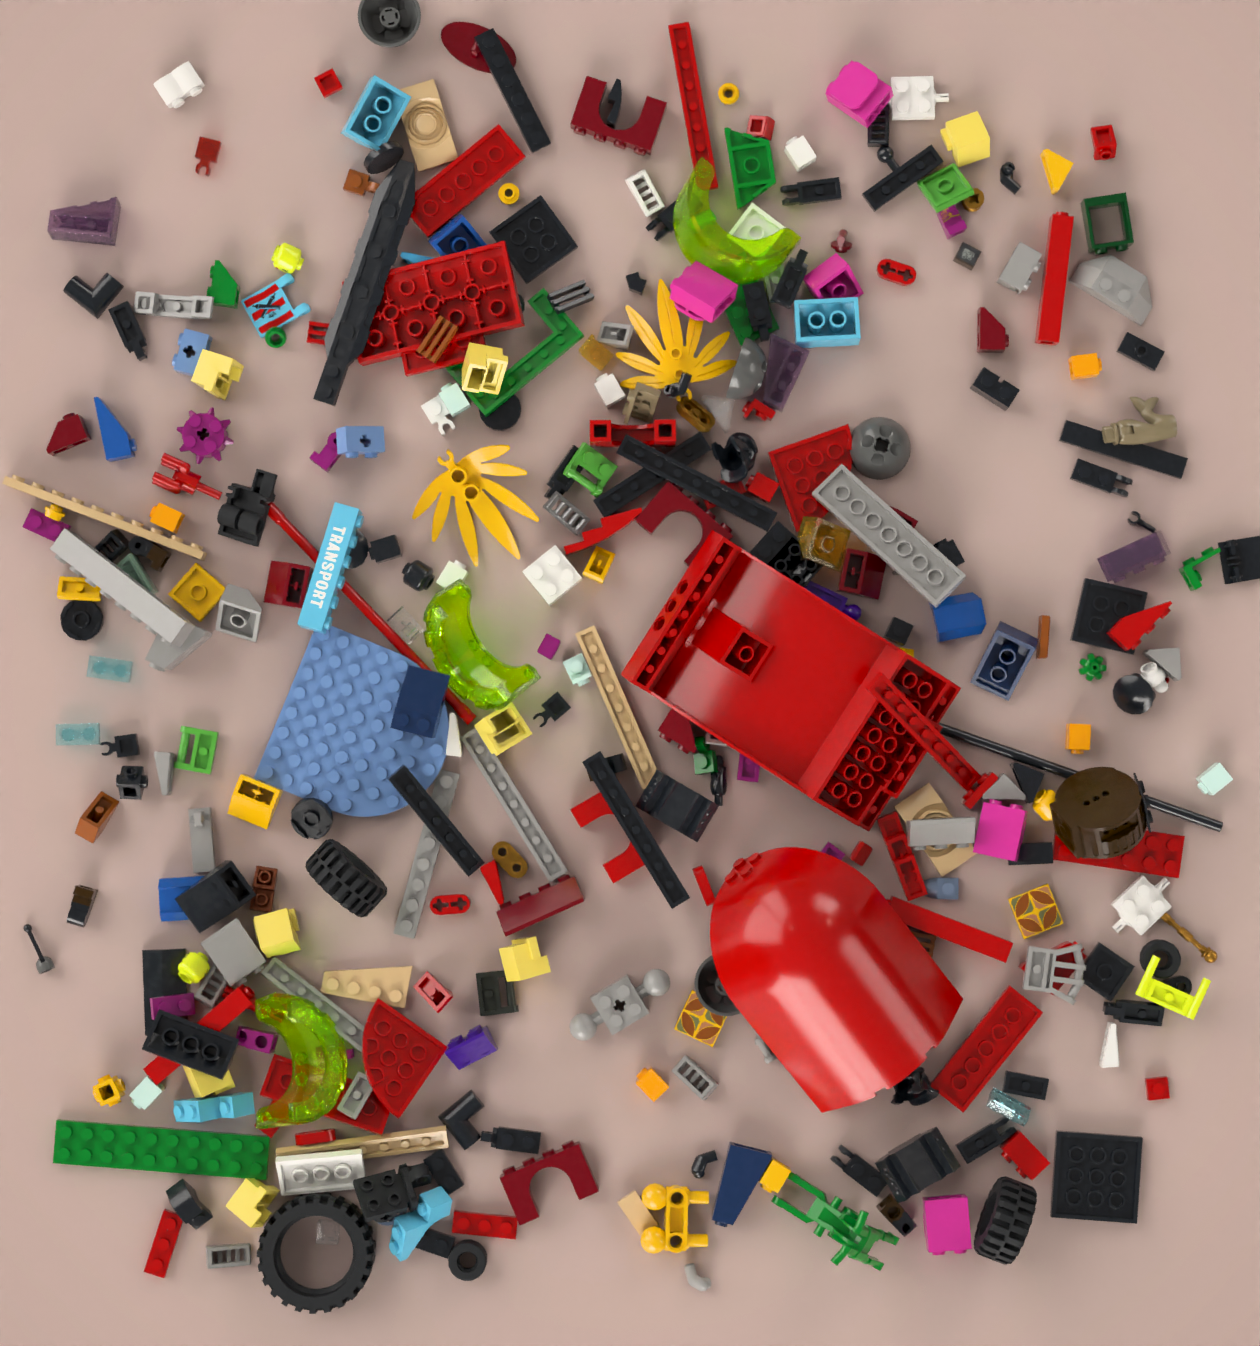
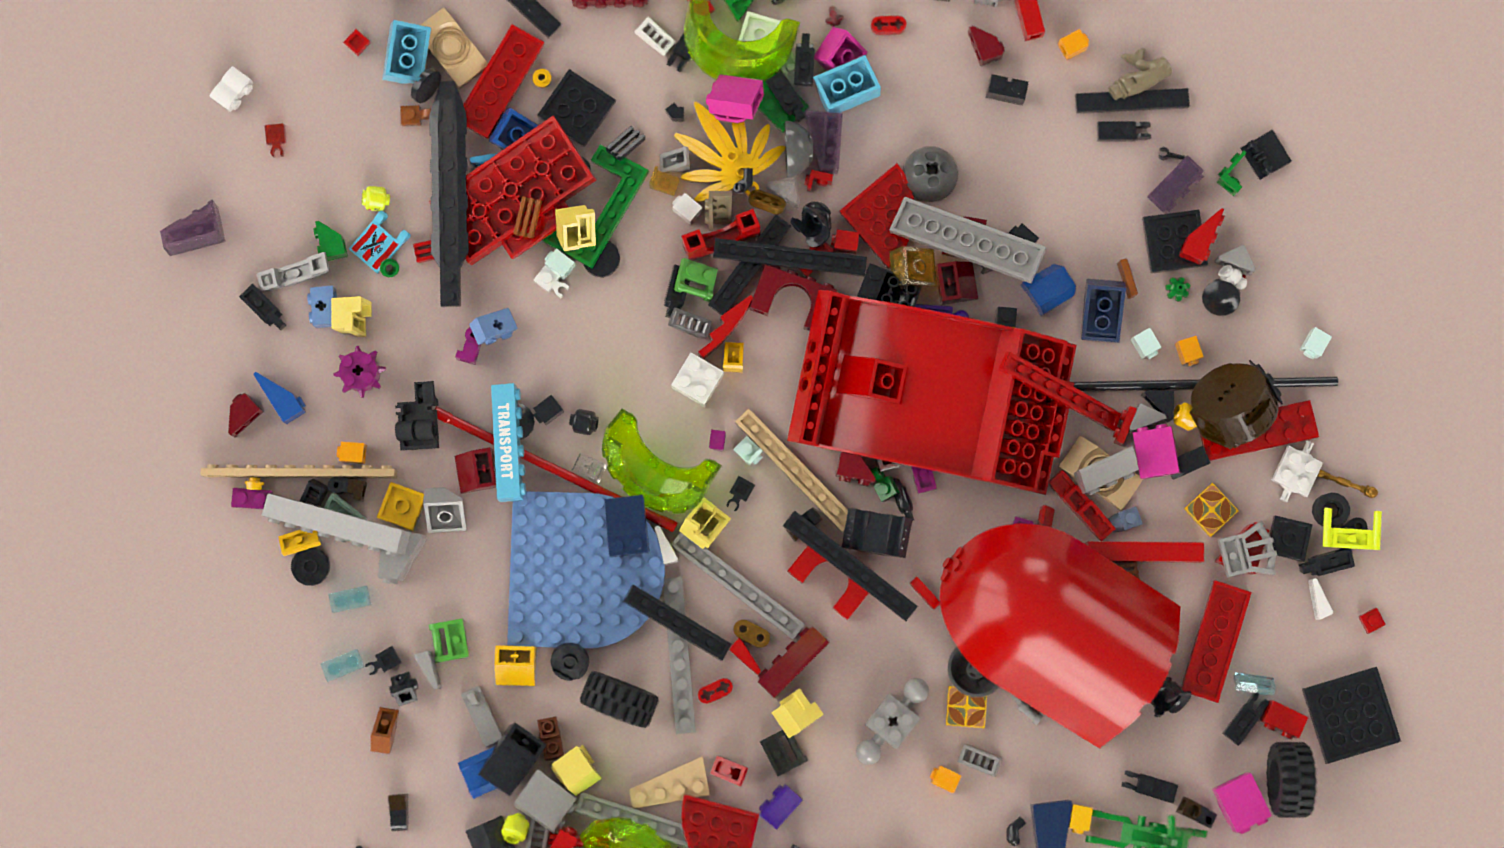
camera: 25 degrees left, 5 degrees down
(94, 299) = (222, 293): black brick -> none
(182, 479) = (354, 415): red plant -> none
(452, 573) = (611, 409): white brick -> none
(466, 484) = (596, 330): yellow plant -> none
(917, 1164) = (1197, 761): black slope -> none
(1025, 1085) = (1261, 659): black plate -> none
(1035, 713) = (1146, 344): none -> light aqua brick
(1140, 351) = (1114, 16): black plate -> none

